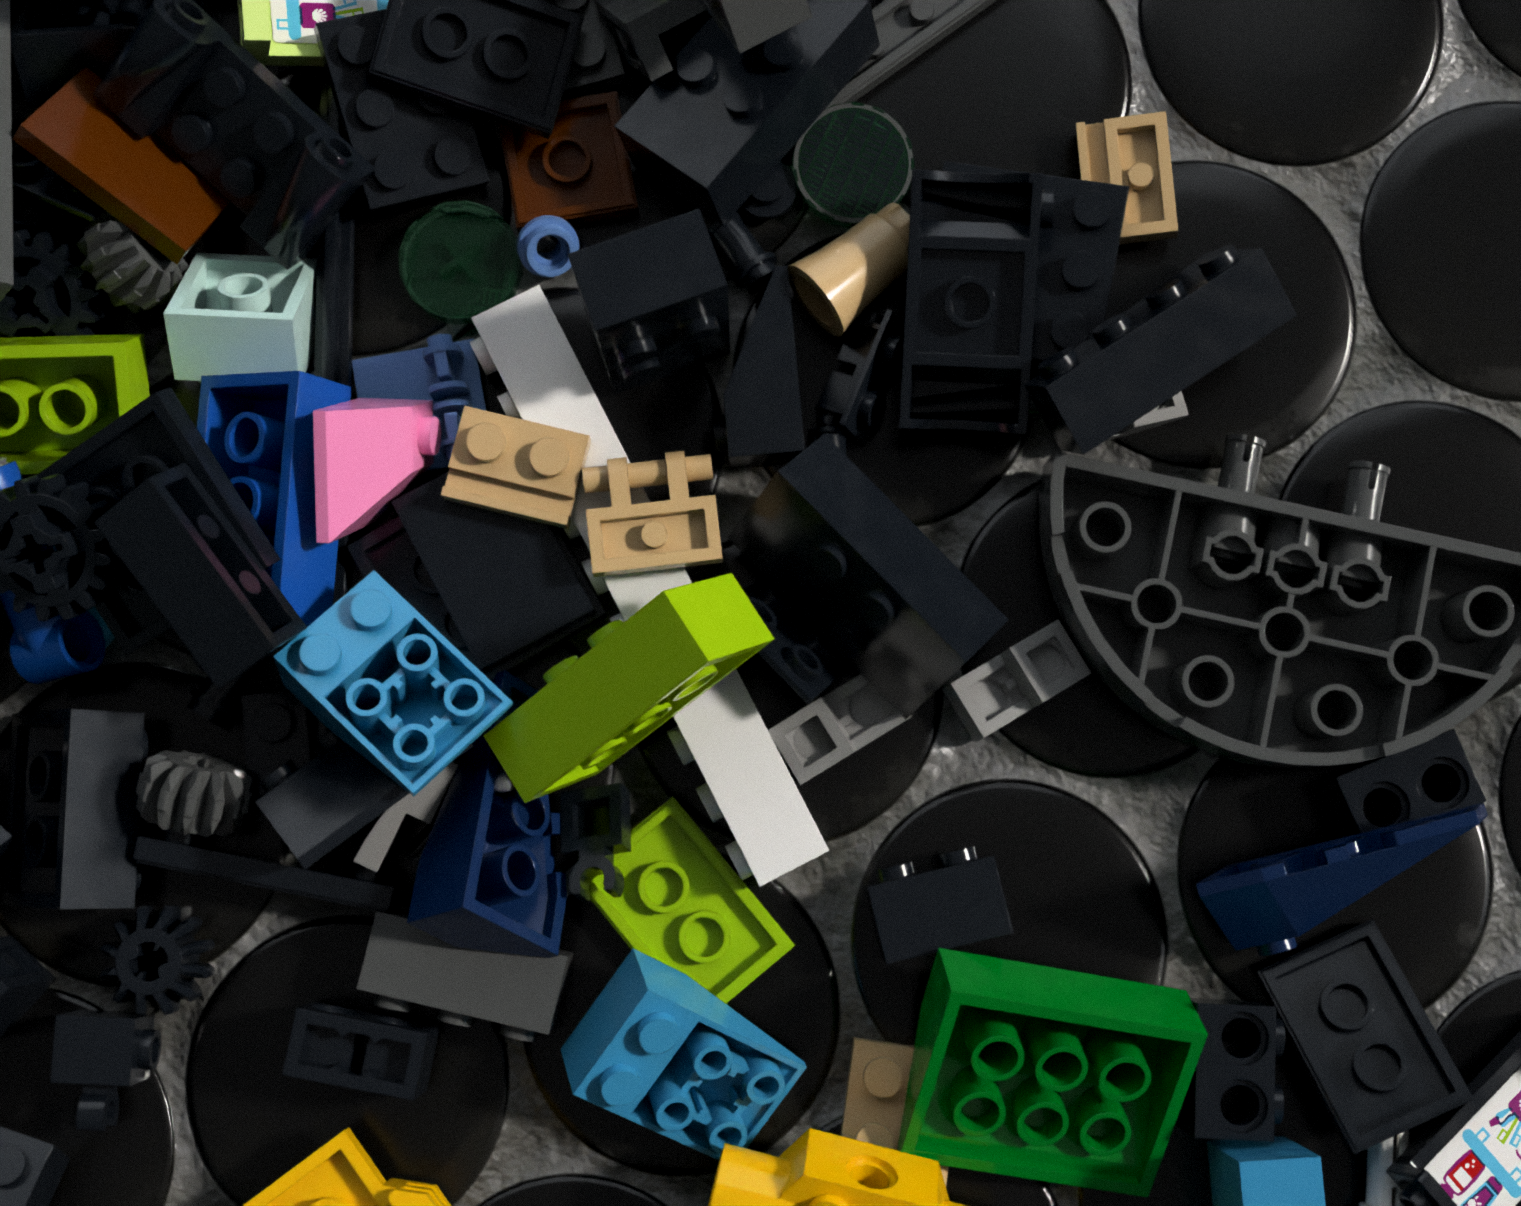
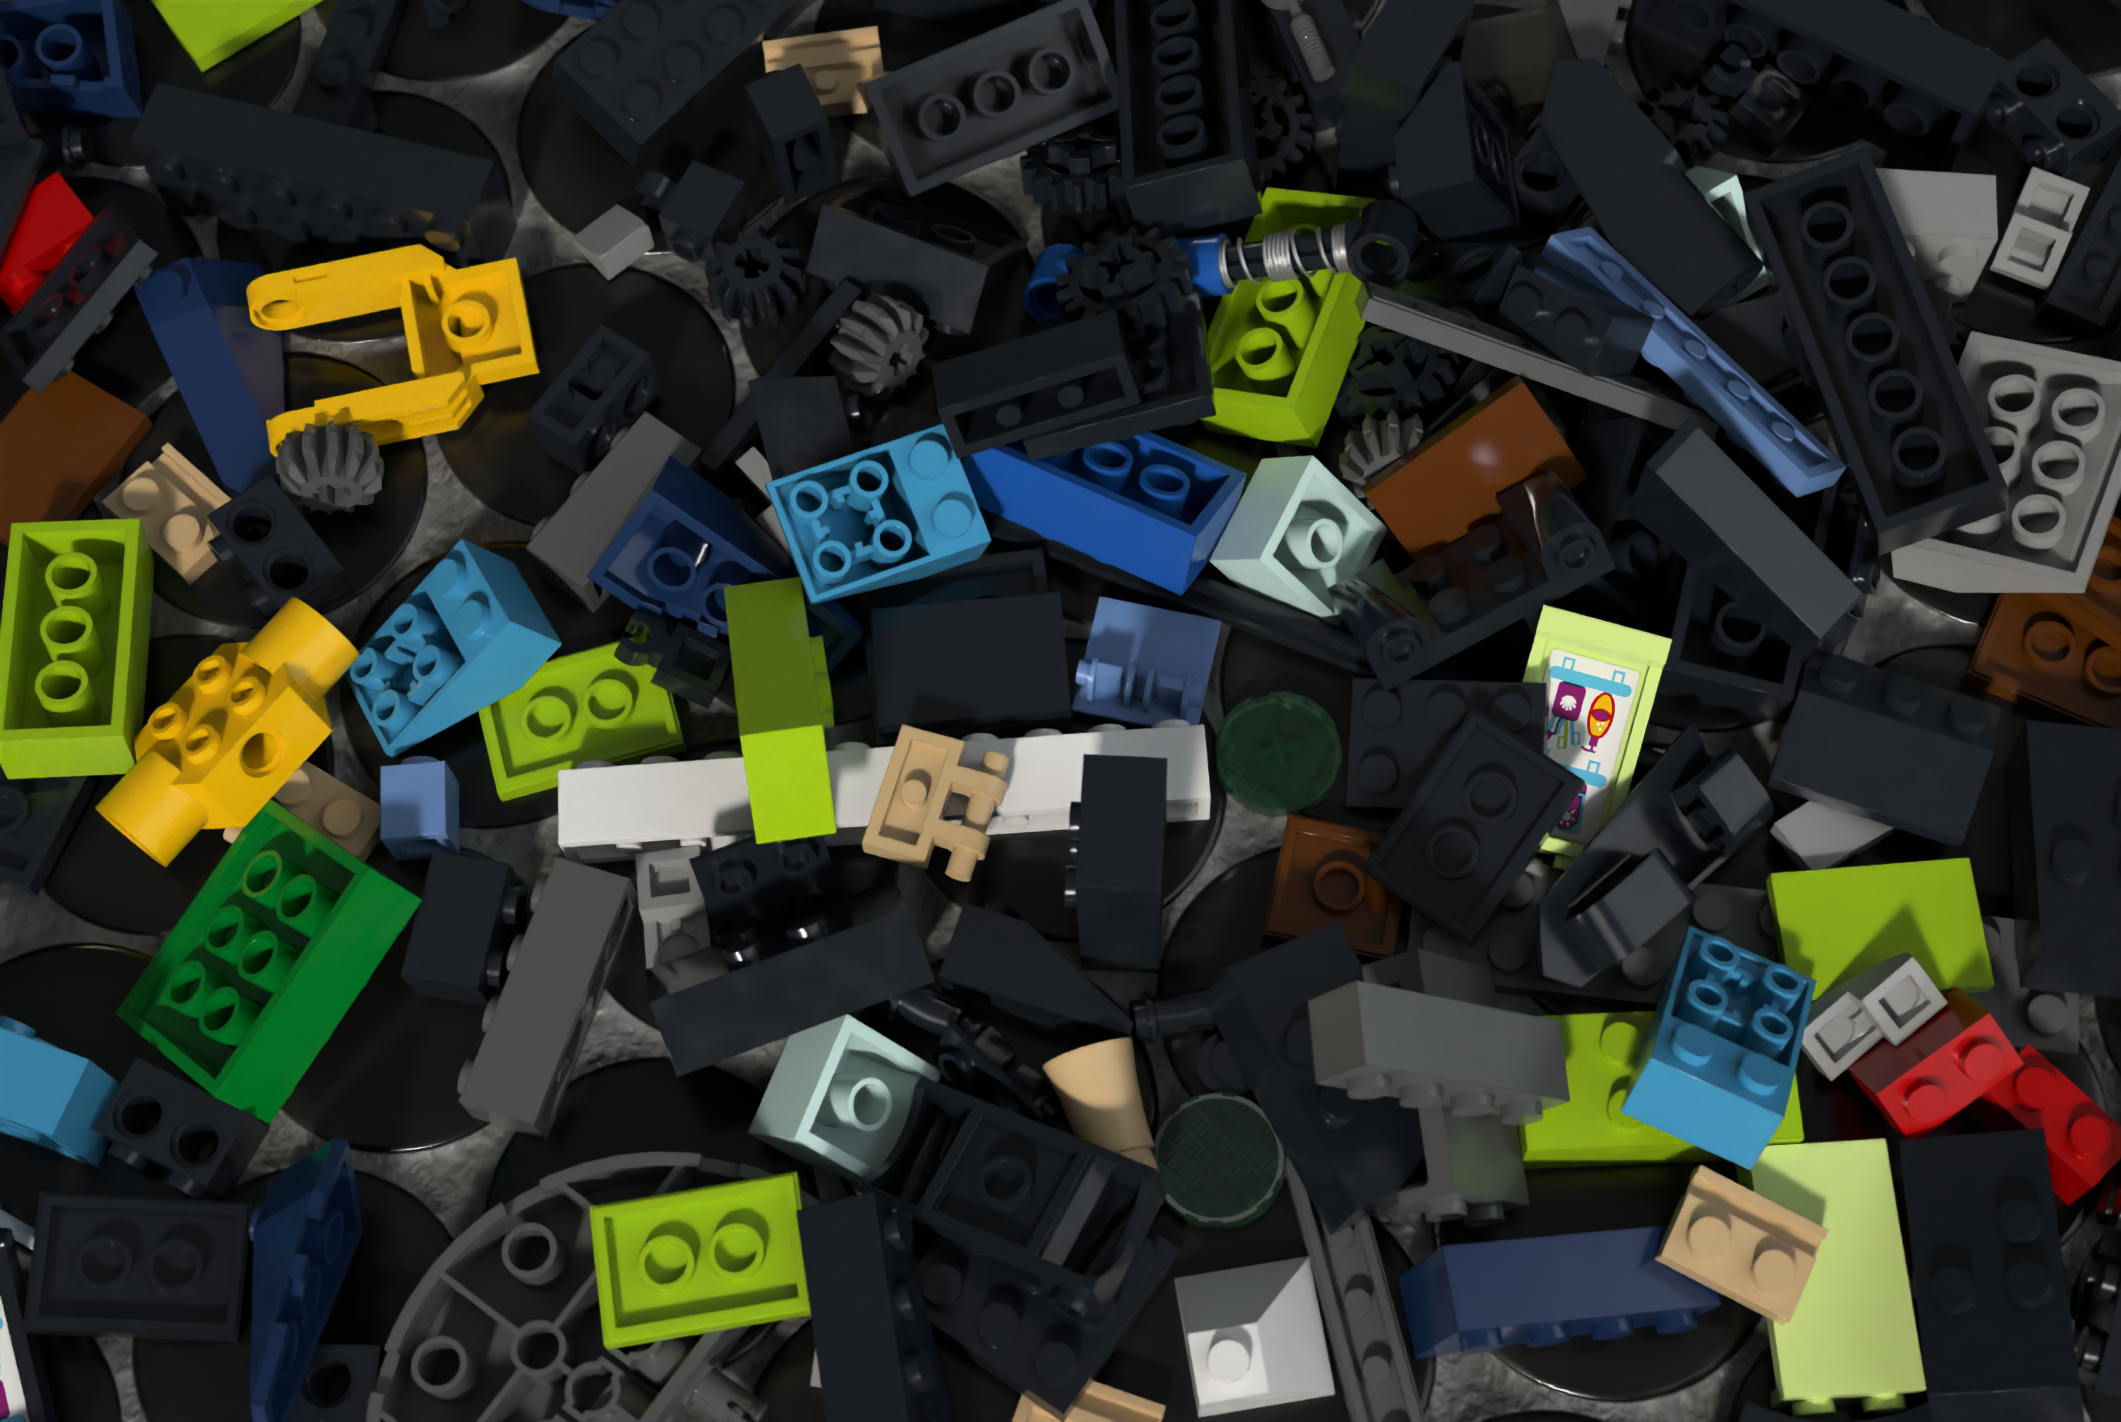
camera: 120 degrees right, 15 degrees down
(165, 1134) = (614, 241): none -> light grey slope
(367, 458) = (1107, 579): bright pink slope -> none
(516, 467) = (1038, 705): tan plate -> none
(553, 262) = (1254, 832): medium blue plate -> none
(841, 1010) = (419, 808): none -> medium blue brick
(950, 488) = (839, 1097): none -> light aqua slope
(966, 795) = (548, 998): none -> dark grey brick
(988, 82) = (1254, 1336): none -> white slope
(1016, 681) = (633, 1093): light grey slope -> none
(1153, 524) = (699, 1260): none -> lime tile

